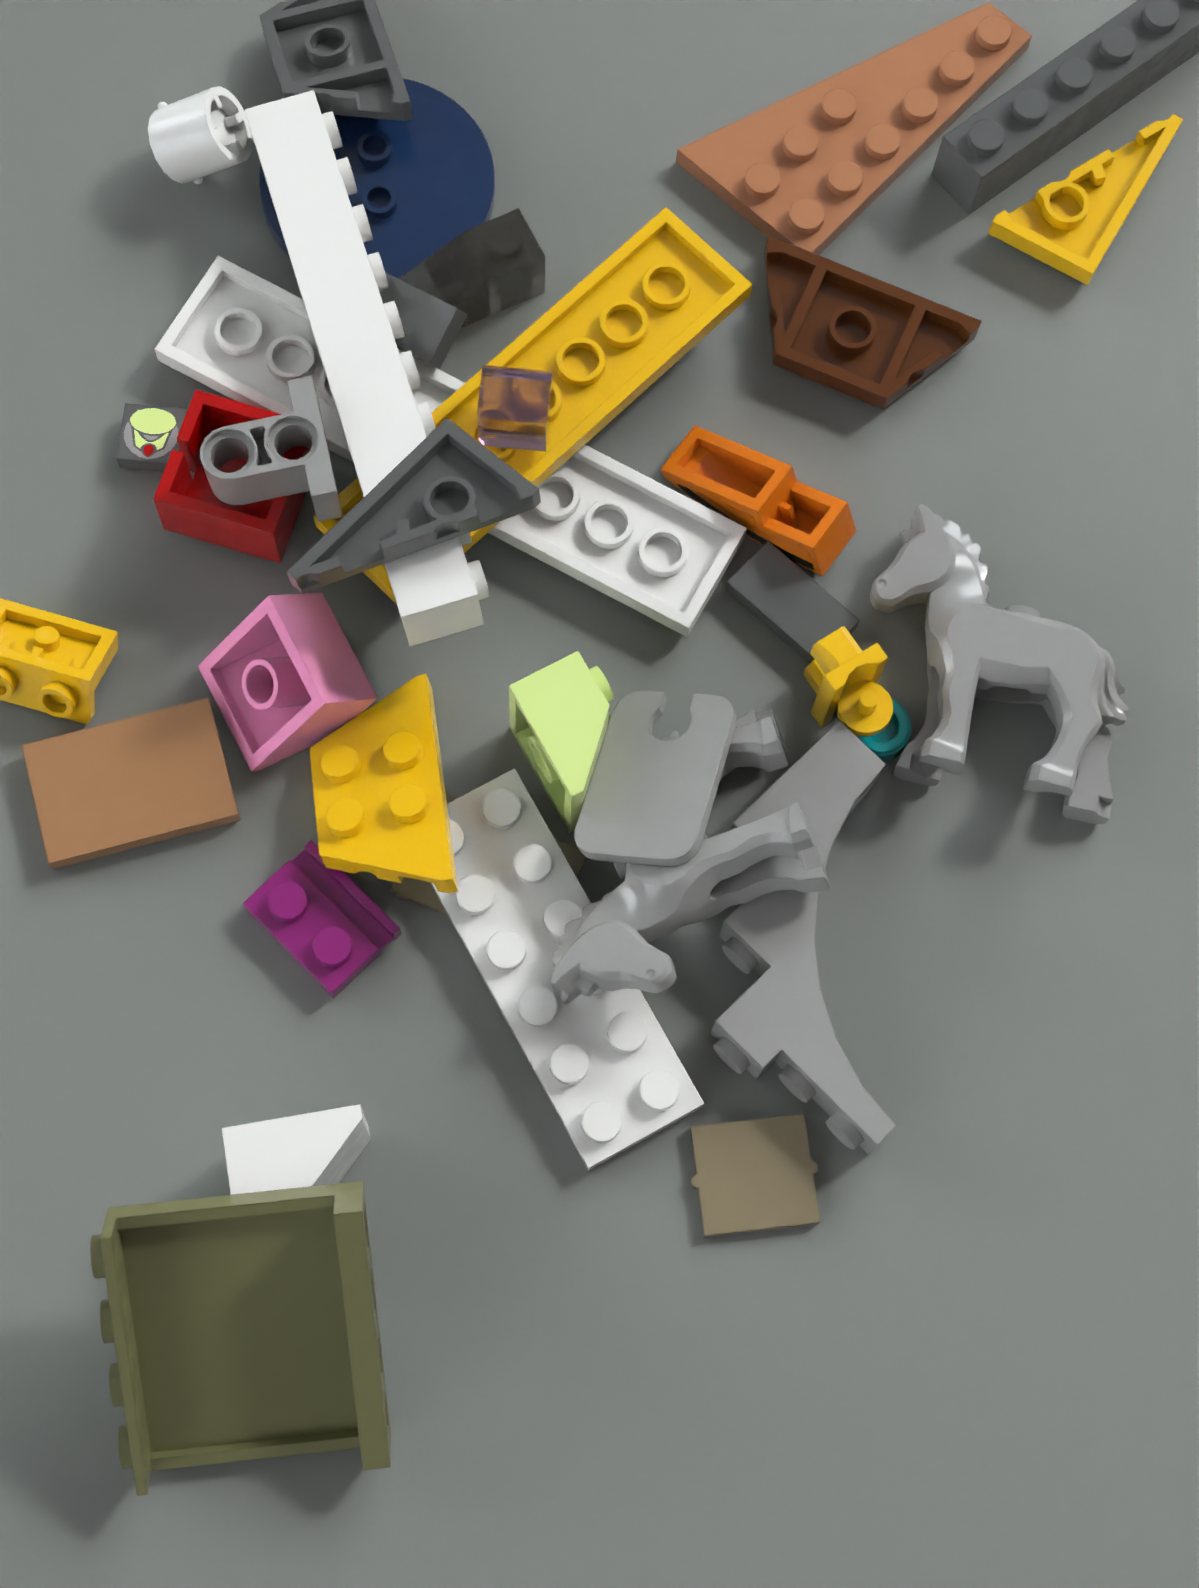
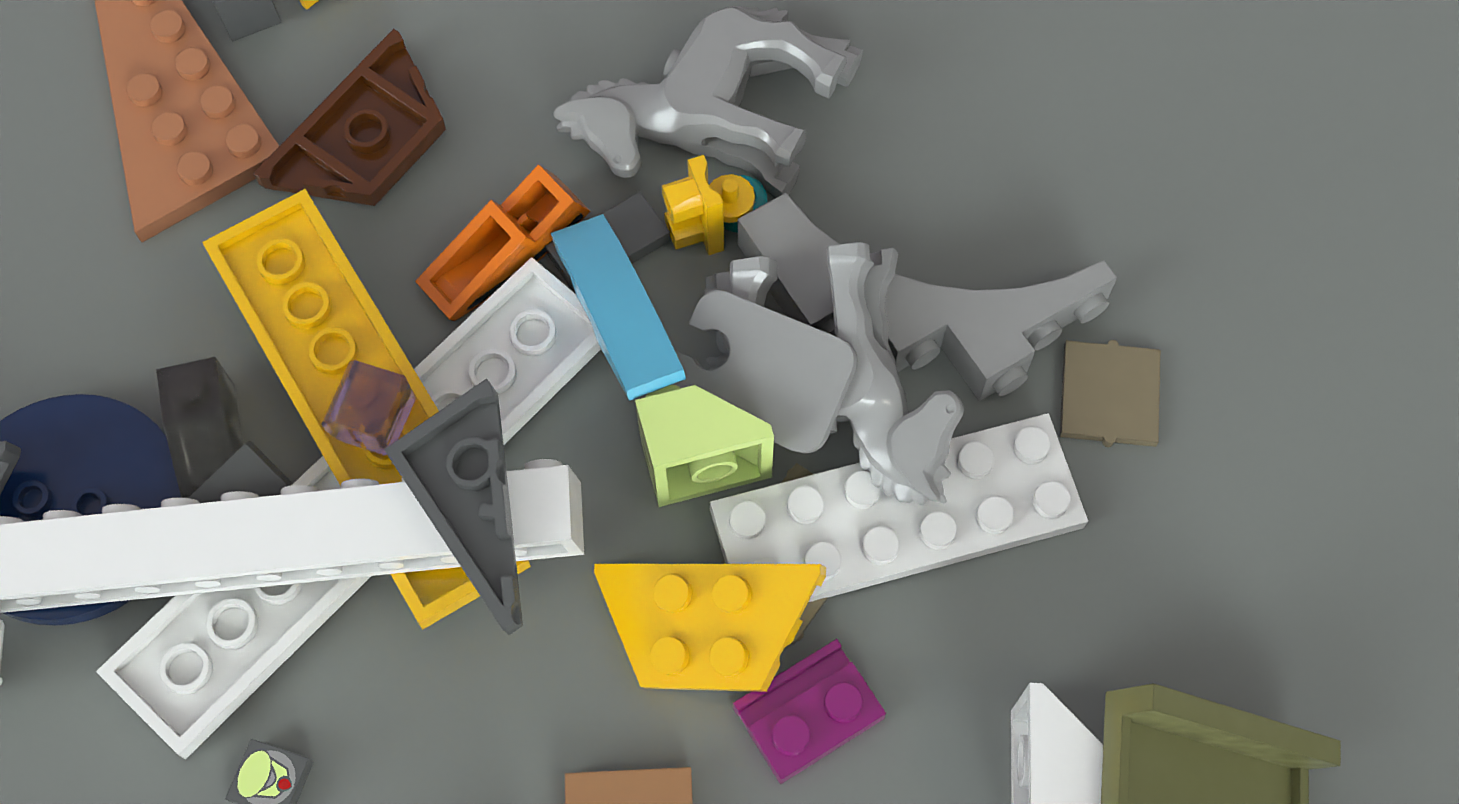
camera: 70 degrees left, 5 degrees down
(192, 508) = (347, 692): red piece -> none
(263, 445) = (364, 645): light grey tile -> none
(286, 678) = (567, 694): bright pink slope -> none
(693, 616) = (618, 307): none -> medium azure slope

